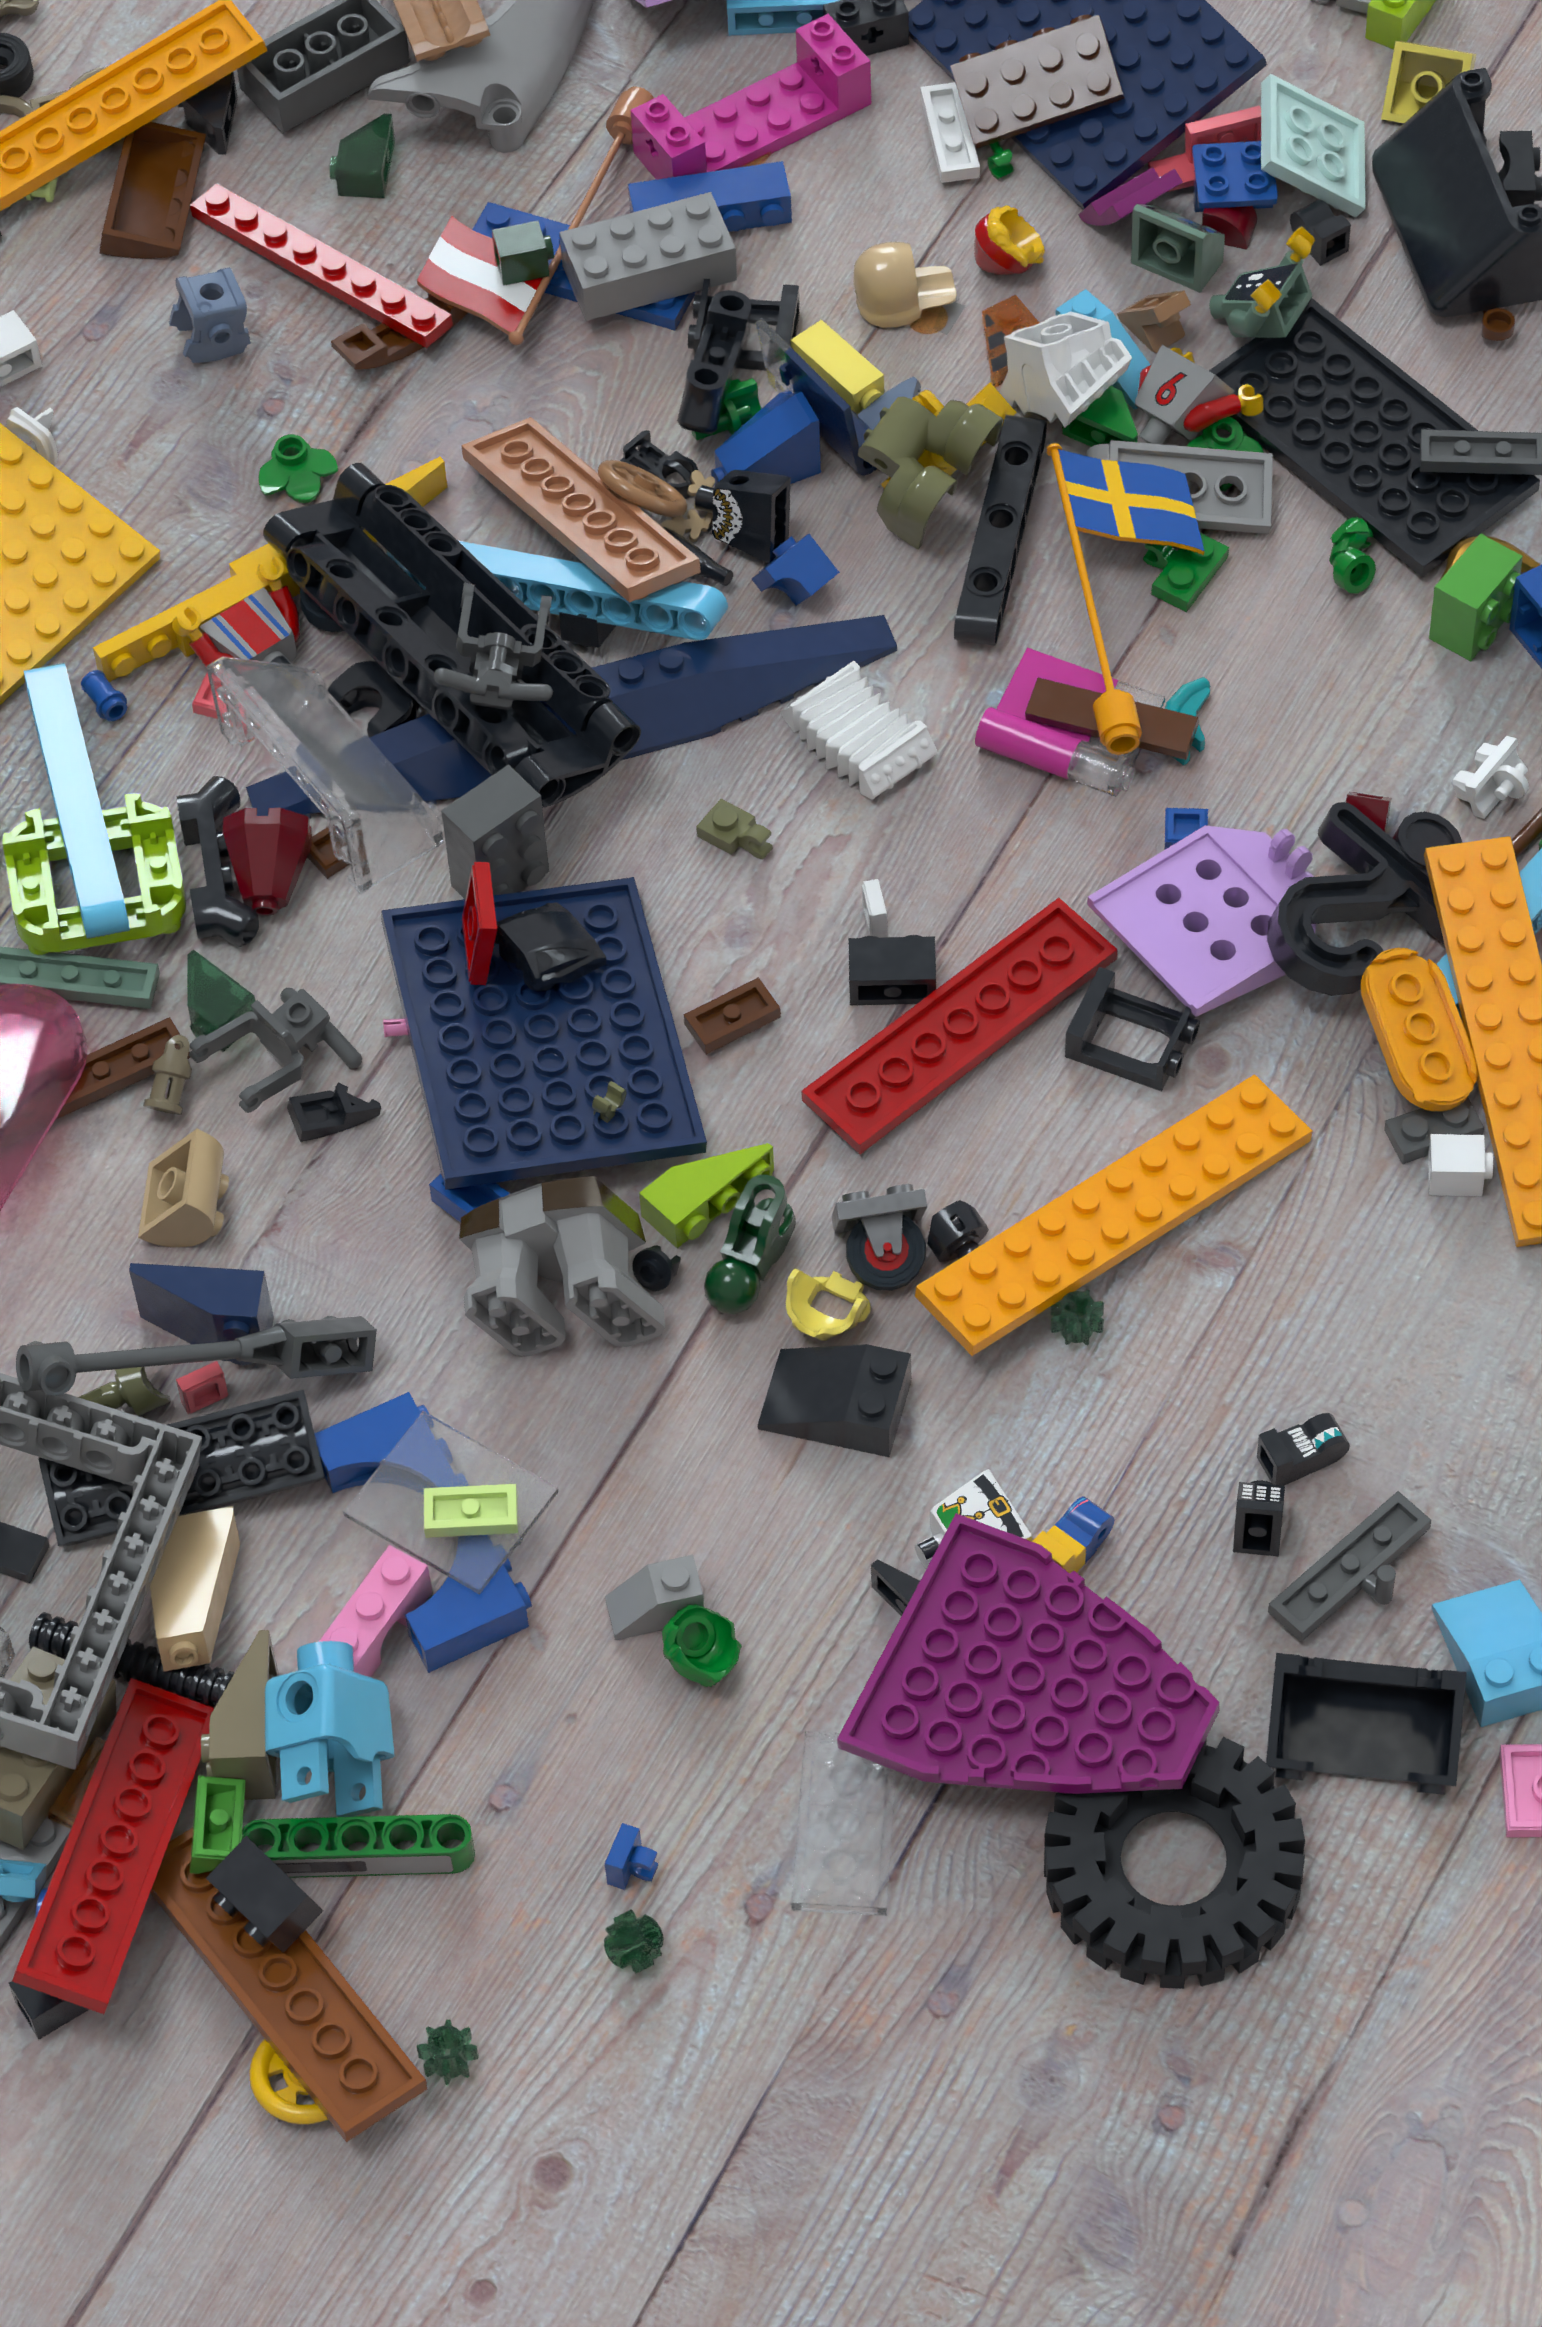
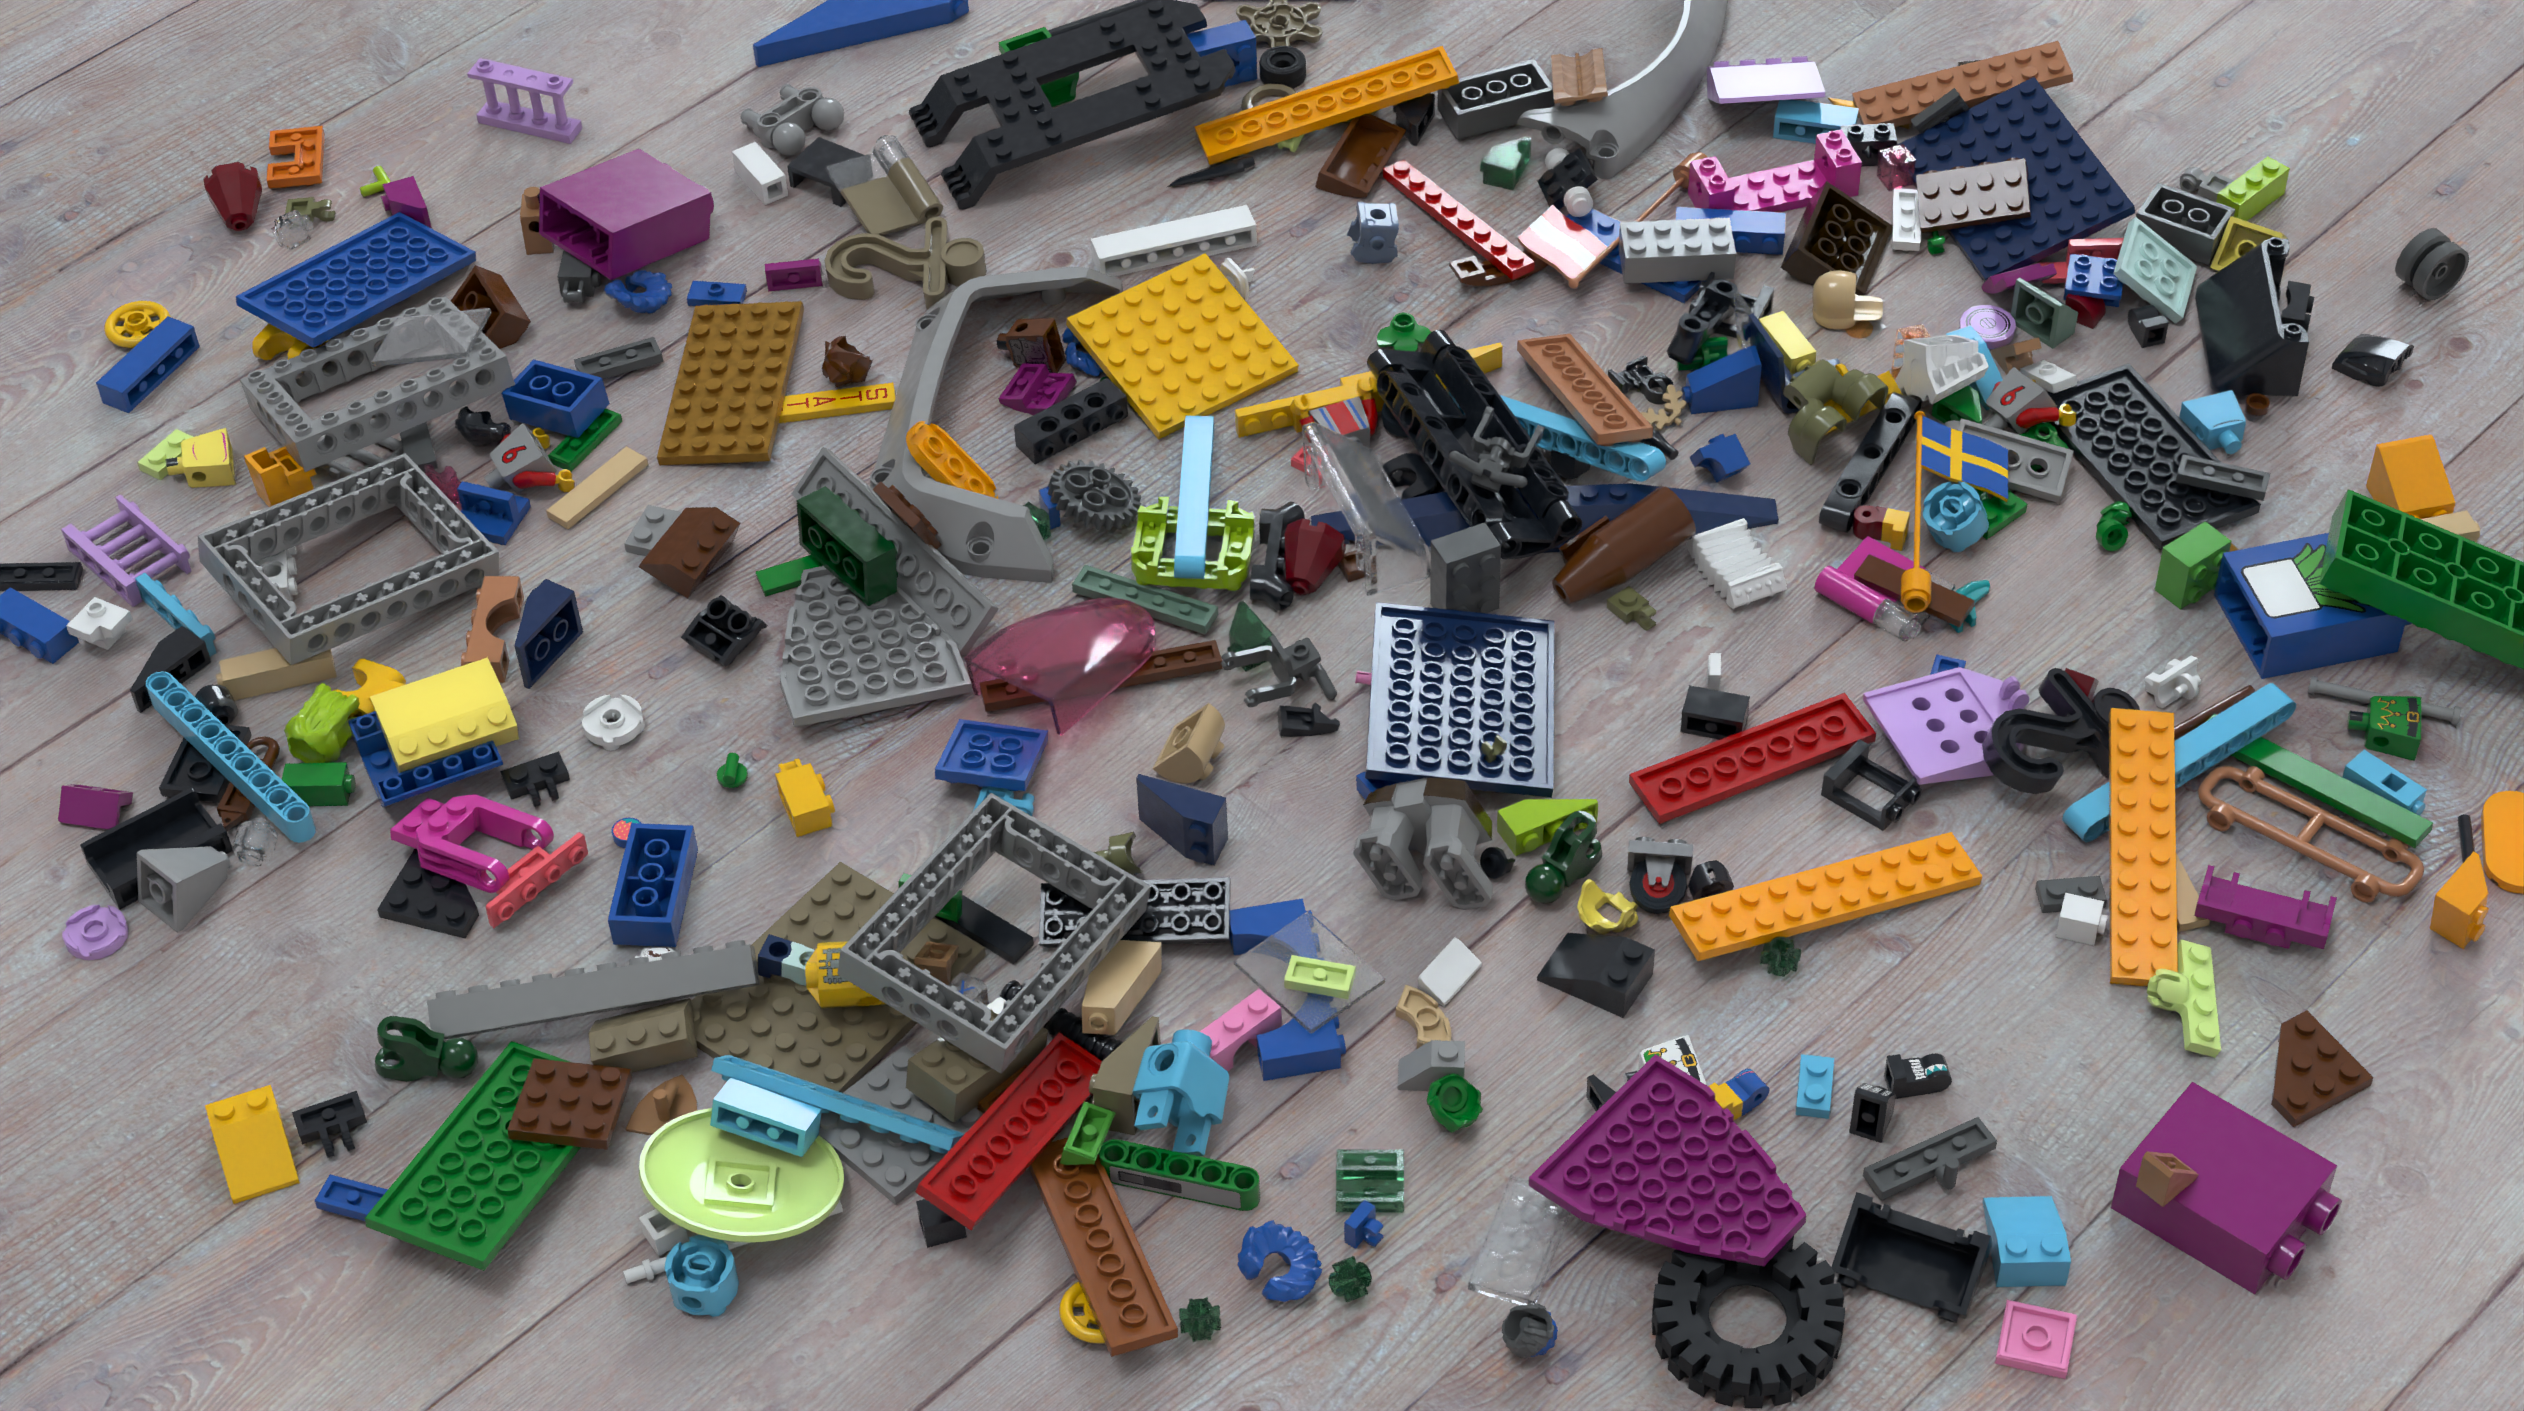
camera: 15 degrees right, 10 degrees down
(109, 702) = (1235, 445): blue pin -> none
(174, 1067) = (1204, 668): dark tan piece -> none
(202, 1387) = (1165, 866): coral tile -> none
(264, 1895) = (1104, 1184): black brick -> none
(294, 1347) = (1232, 852): dark grey bar -> none
(463, 173) = (1567, 181): none -> black plate
(479, 923) = (1437, 618): red tile -> none
(522, 252) = (1592, 232): brick -> none
(544, 1916) = (1293, 1249): none -> blue piece
(548, 946) = (1480, 646): black slope -> none
(617, 1785) = (1372, 1177): none -> clear green slope
(624, 1524) = (1423, 1015): none -> tan tile
(637, 1450) = (1448, 972): none -> white slope
(642, 488) = (1630, 385): medium nougat plate -> none
(698, 747) = (1622, 548): none -> reddish brown piece
(732, 1016) = (1596, 719): reddish brown plate -> none
(749, 511) = (1699, 413): black torso -> none
(862, 187) = (1836, 236): none -> dark brown slope
(894, 1955) = (1529, 1330): none -> dark grey piece
(915, 52) = (1896, 167): none -> clear pink brick
(1006, 243) = (1925, 290): hair -> none
(1040, 625) = (1881, 524): none -> leg
(1107, 274) = (1991, 323): none -> lavender tile
(1139, 592) = (1955, 515): none -> medium azure brick
(1171, 1496) = (1814, 1086): none -> medium azure plate
(1208, 341) = (2050, 376): none -> white plate
(1270, 298) = (2099, 356): sand green torso -> none
(1334, 58) = (2186, 221): none -> dark grey brick
(1419, 1029) = (2075, 824): light orange tile -> none
(1449, 362) = (2216, 420): none -> medium azure torso

